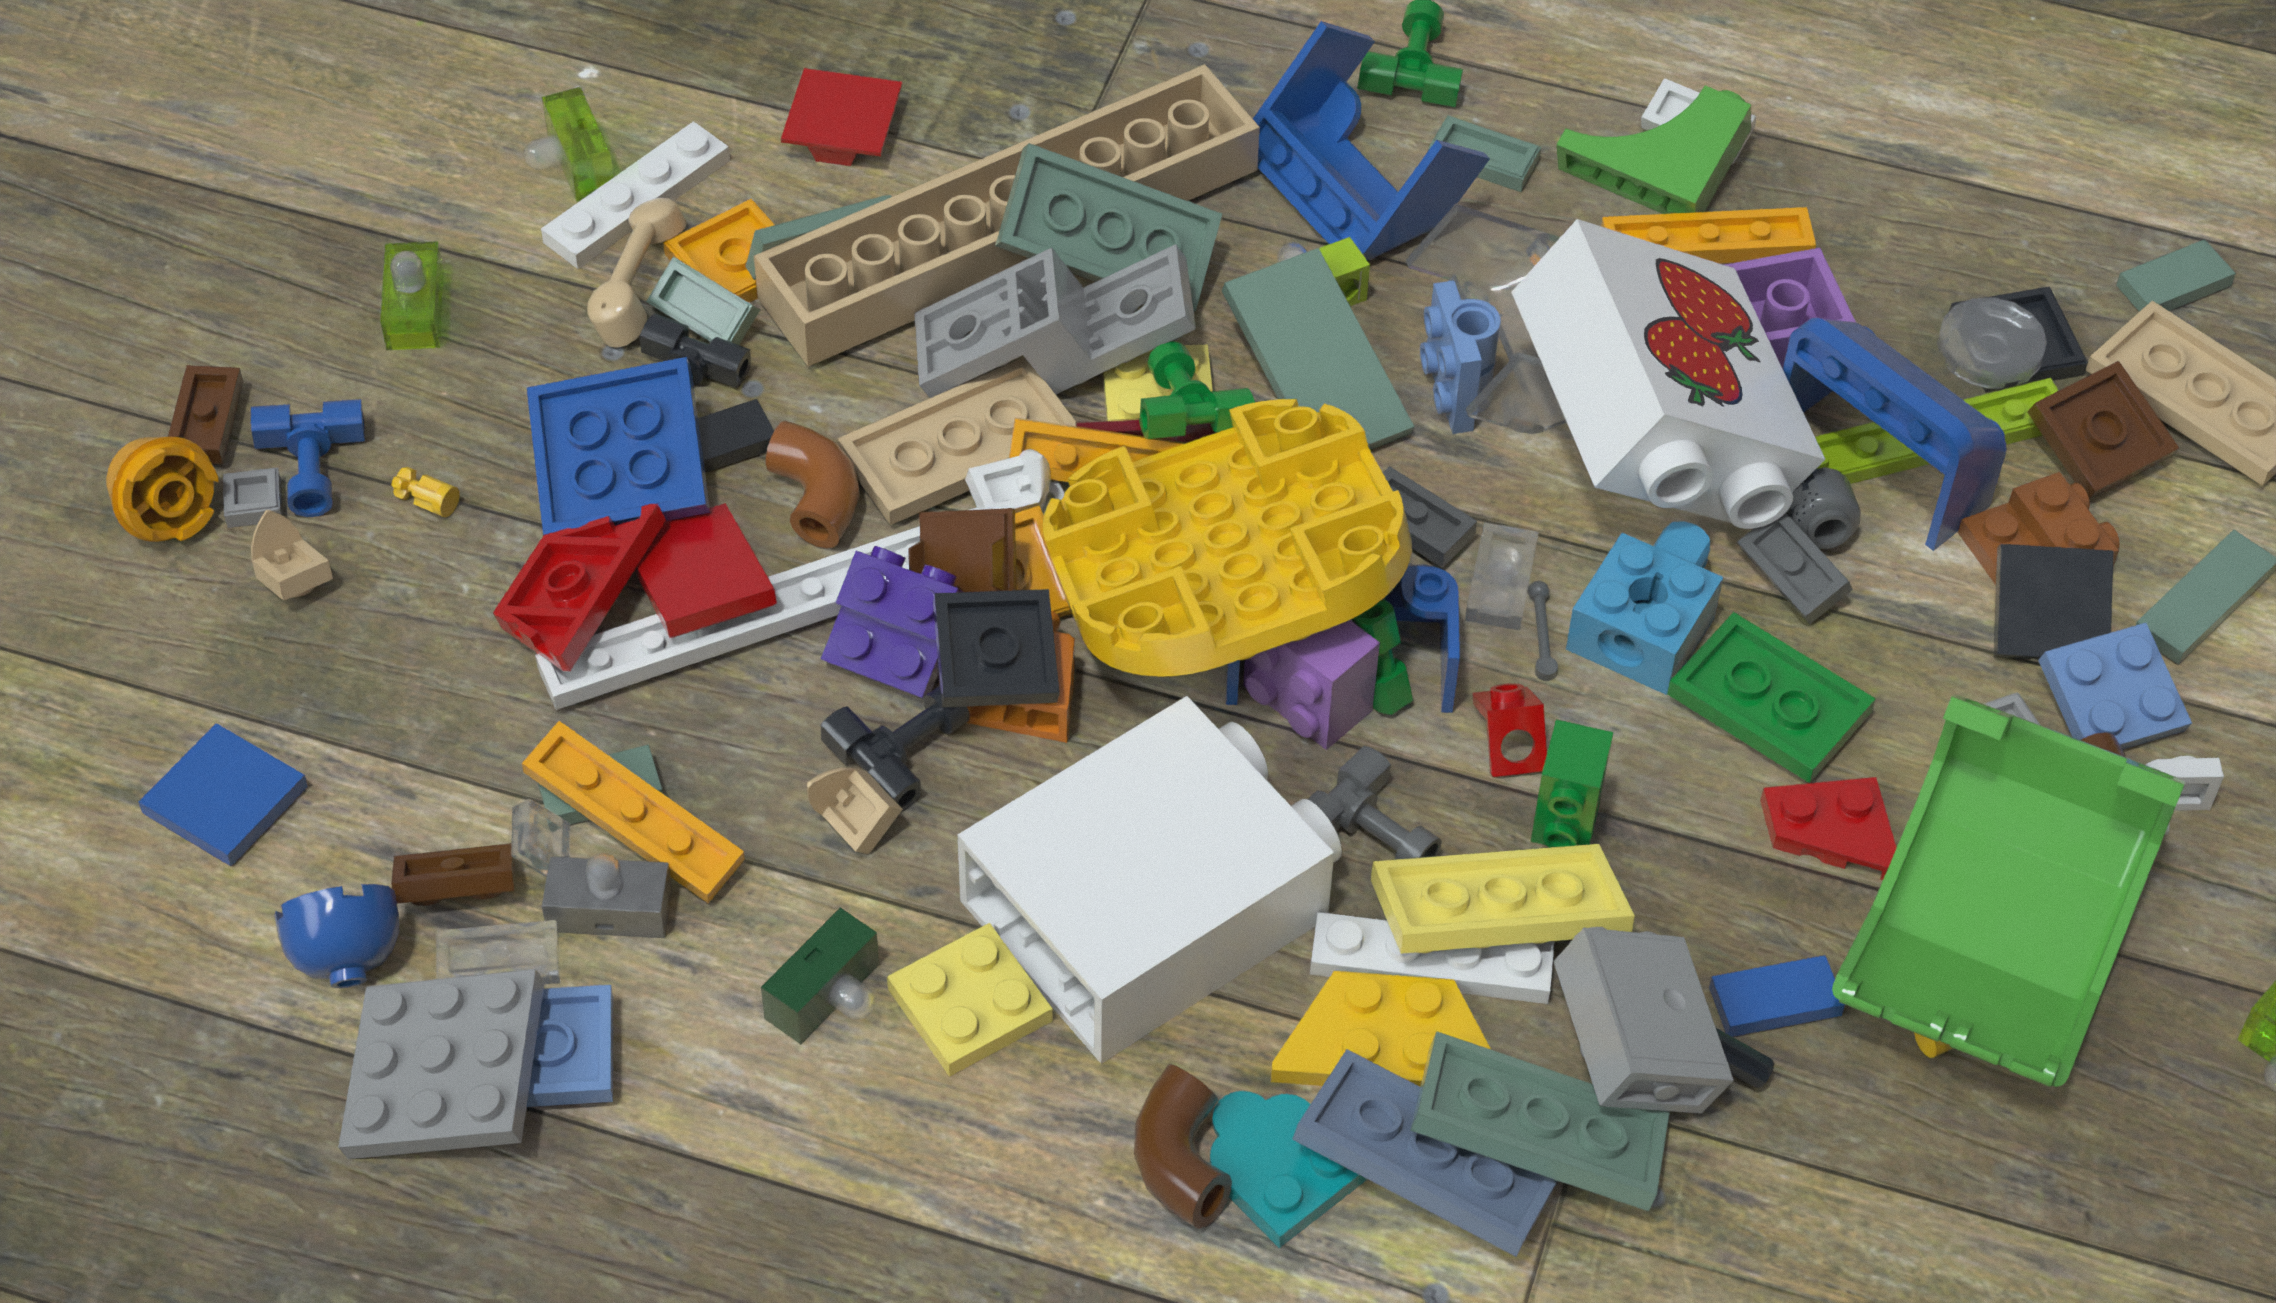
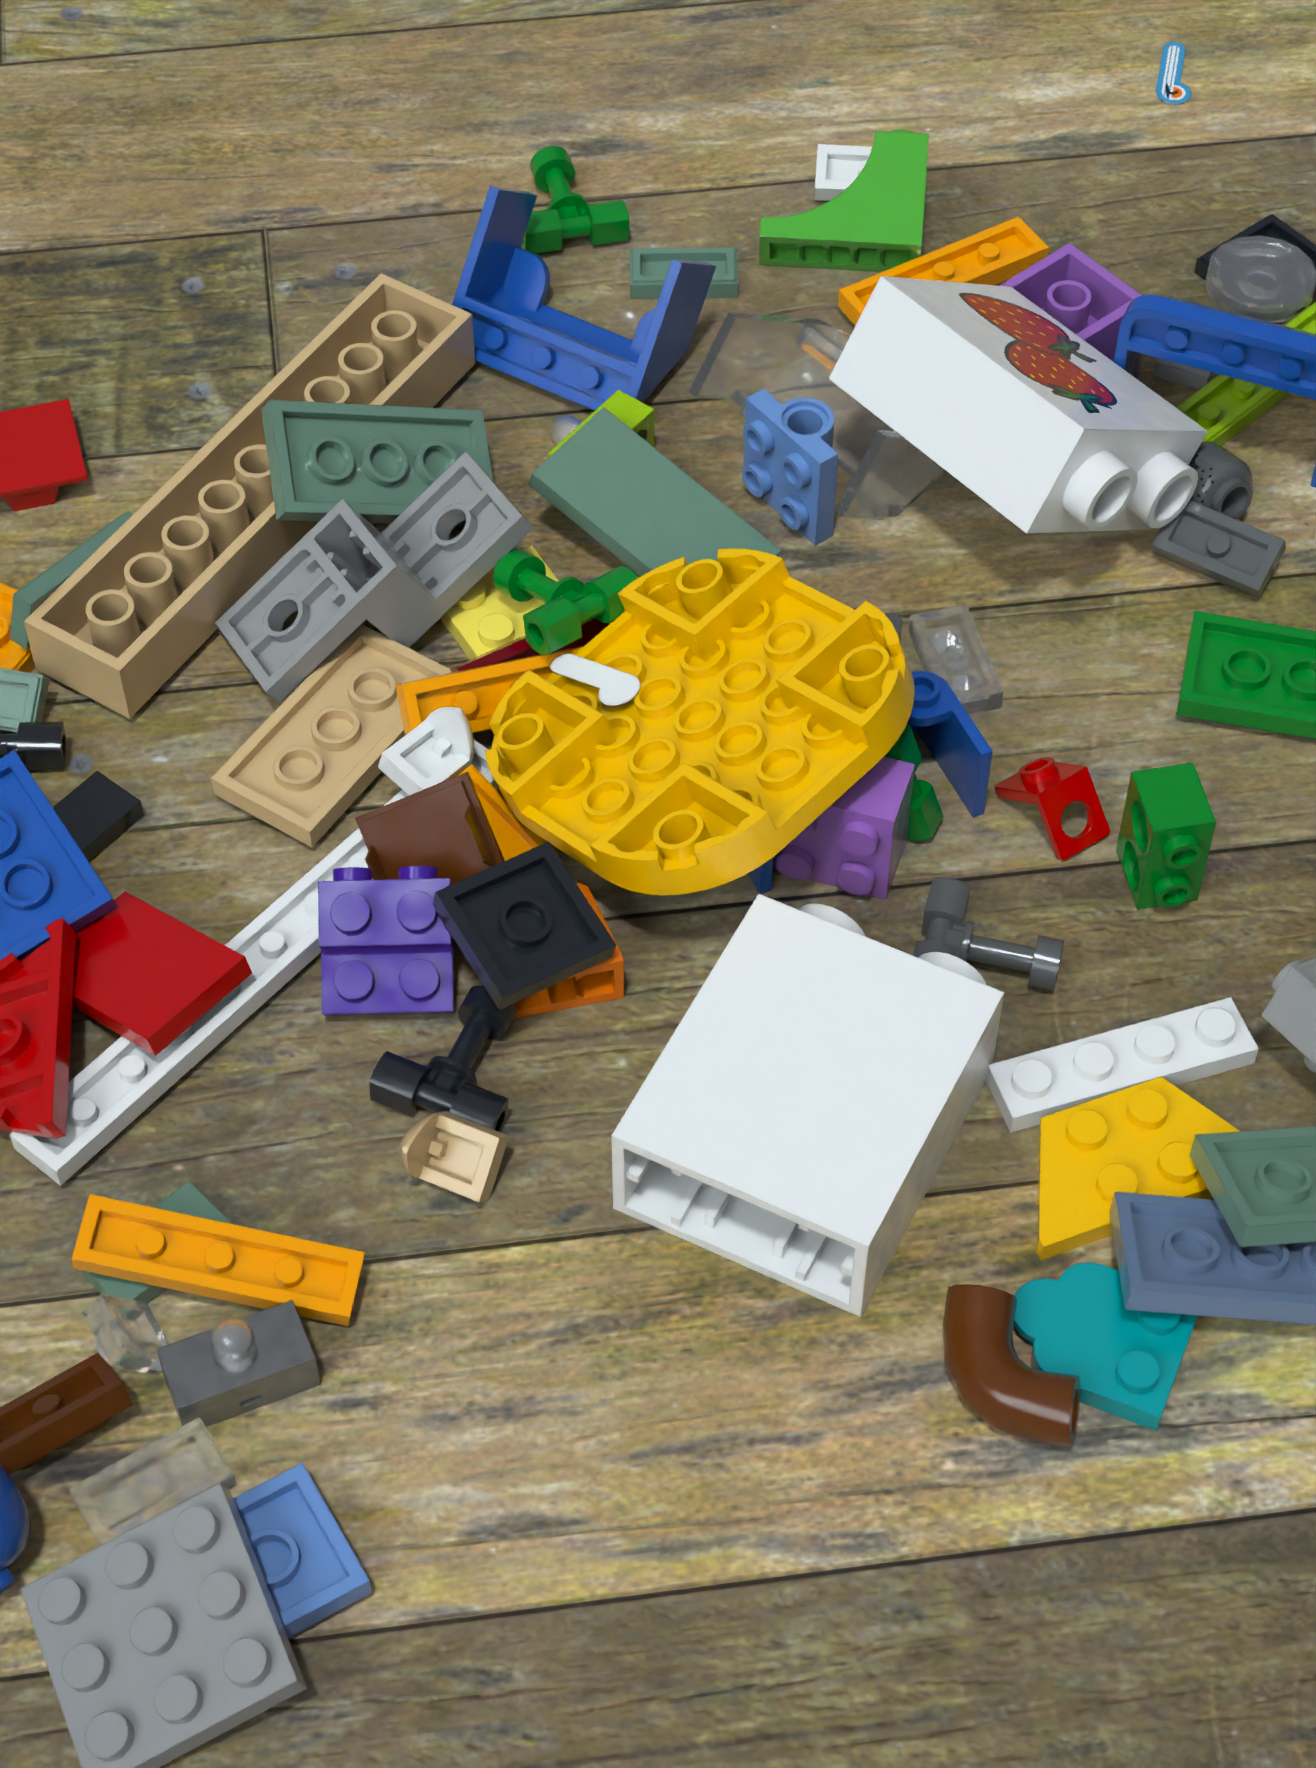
camera: 25 degrees left, 0 degrees up
(823, 978) = (529, 1353): dark green piece -> none
(826, 477) = (222, 823): dark orange cylinder -> none
(969, 999) = (689, 1308): light yellow plate -> none
(1184, 482) = (614, 685): none -> white sticker
(1499, 898) = (1162, 975): light yellow plate -> none
(1546, 666) = (1046, 732): dark grey hinge -> none
(1648, 606) = (1115, 636): dark azure brick -> none
(2041, 136) = (1168, 84): none -> dark azure sticker

